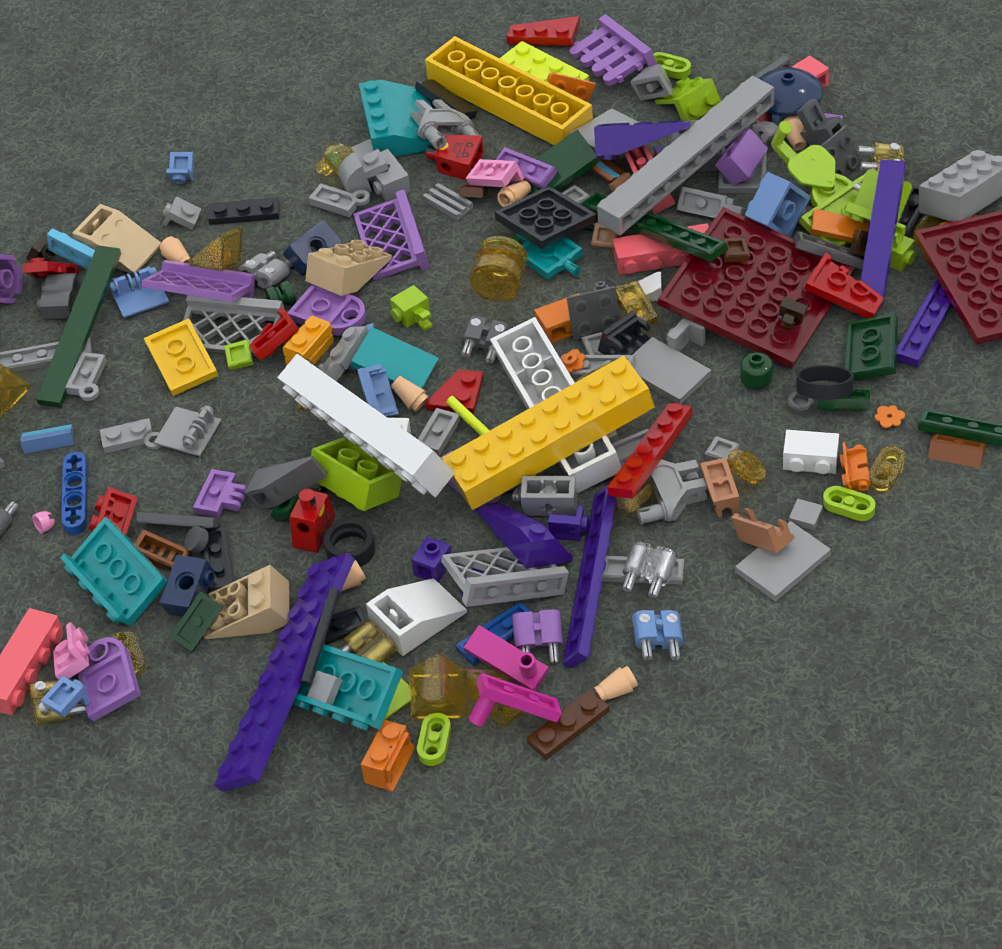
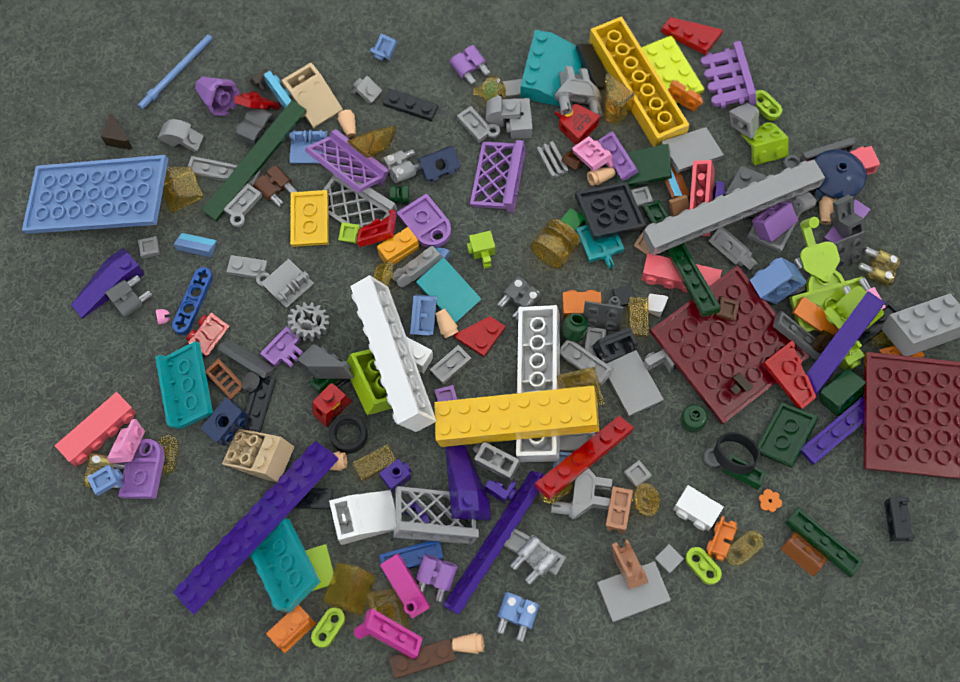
camera: 20 degrees right, 20 degrees up
(114, 342) = (273, 183): none -> reddish brown piece
(197, 621) = (218, 454): dark green plate -> none
(236, 454) = (308, 321): none -> light grey gear
(293, 145) = (468, 62): none -> medium lavender piece
(319, 637) = (285, 516): black bar -> none
(324, 687) = (270, 558): light grey tile -> none
(345, 266) = (453, 190): tan slope -> none
(369, 642) = (321, 527): clear yellow piece -> none
(396, 560) = (374, 462): none -> clear yellow plate
(467, 416) = (478, 368): neon yellow bar -> none
(493, 115) = (616, 100): none -> clear yellow slope
(567, 337) = (574, 327): none -> dark green head
(573, 360) = (571, 351): orange plant -> none
(618, 138) = (693, 168): dark purple wedge -> none
(910, 284) = (842, 392): none -> dark green brick

